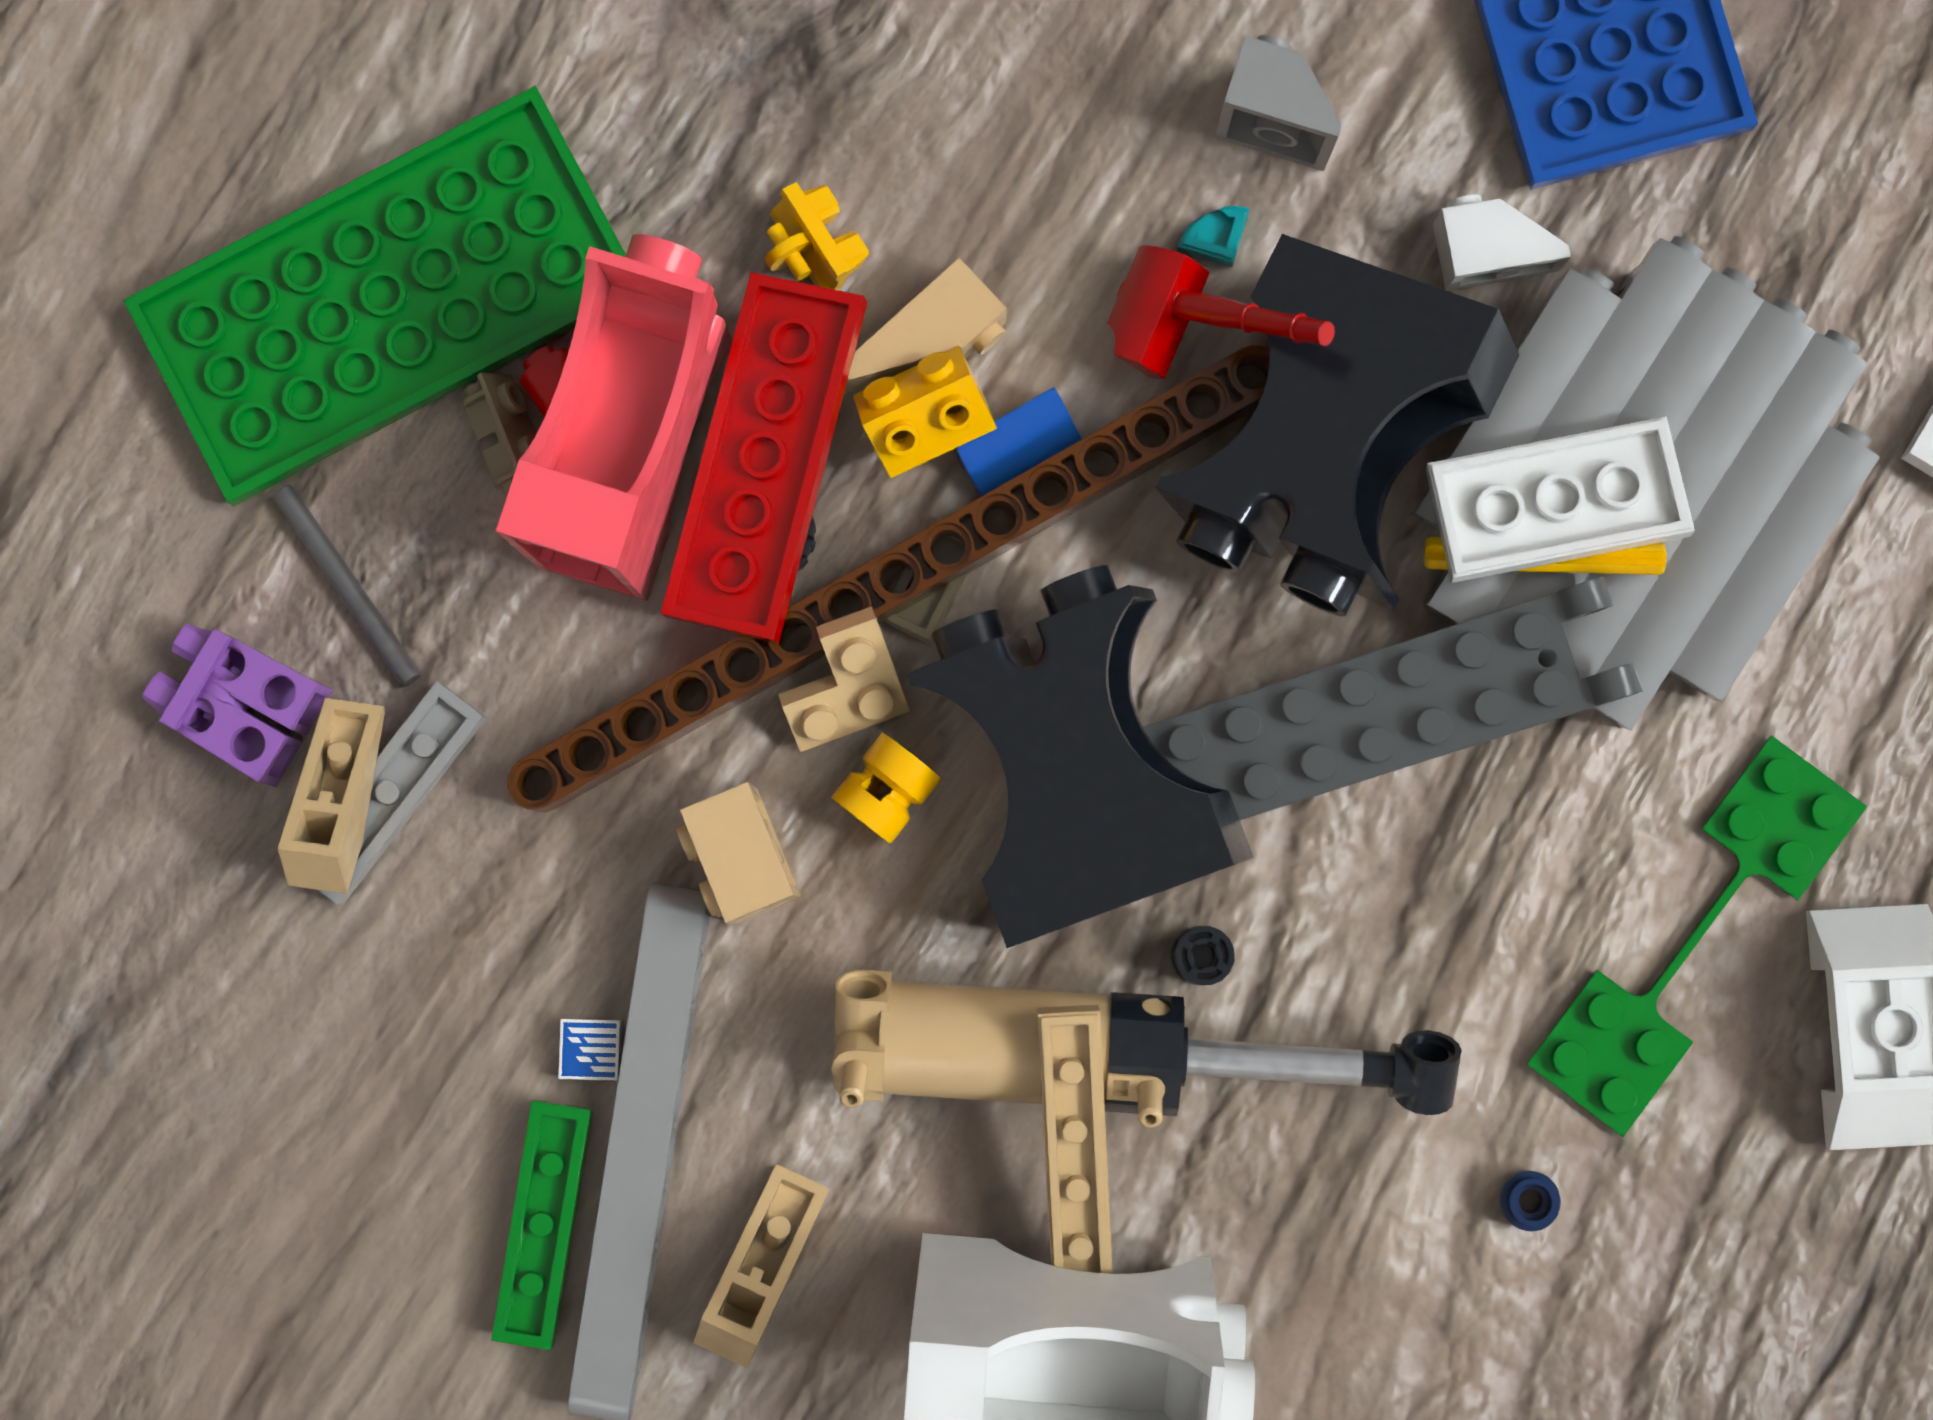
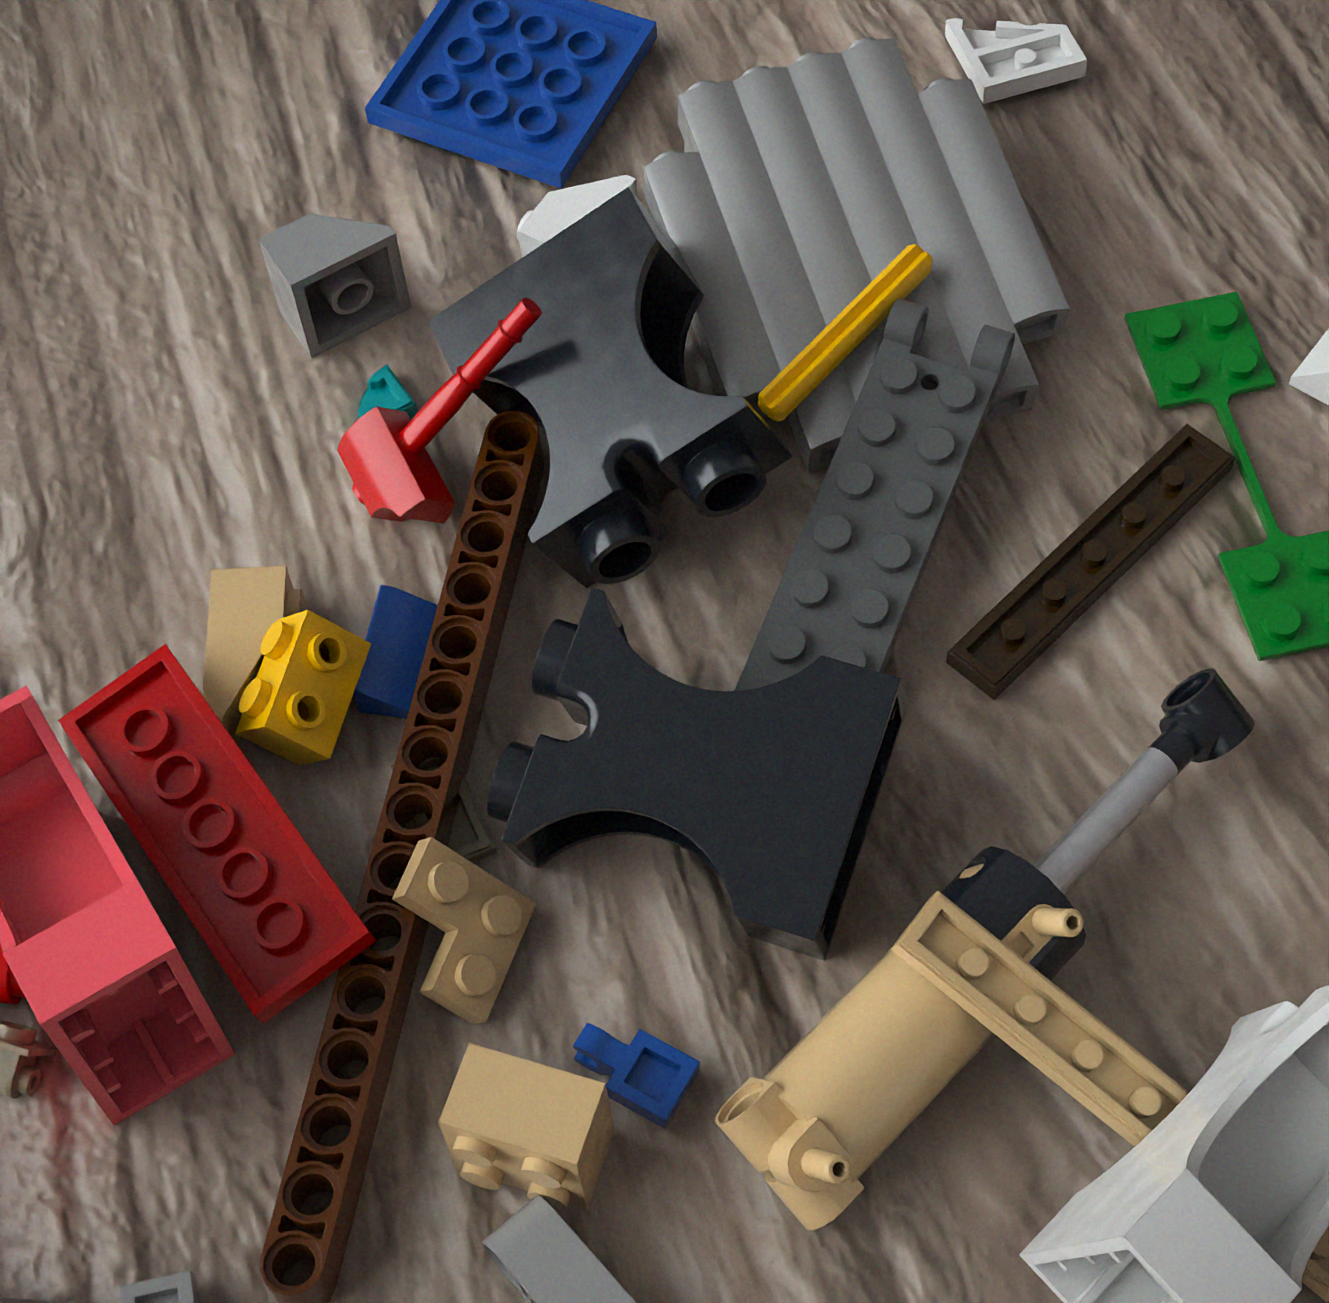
camera: 50 degrees left, 25 degrees down
(805, 242) = (70, 673): yellow hips -> none
(849, 892) = (644, 1076): none -> blue plate
(901, 772) = (583, 966): yellow wheel -> none
(1195, 959) = (949, 839): black wheel -> none
(1518, 879) = (1089, 561): none -> dark brown tile
(1559, 499) = (810, 286): white tile -> none

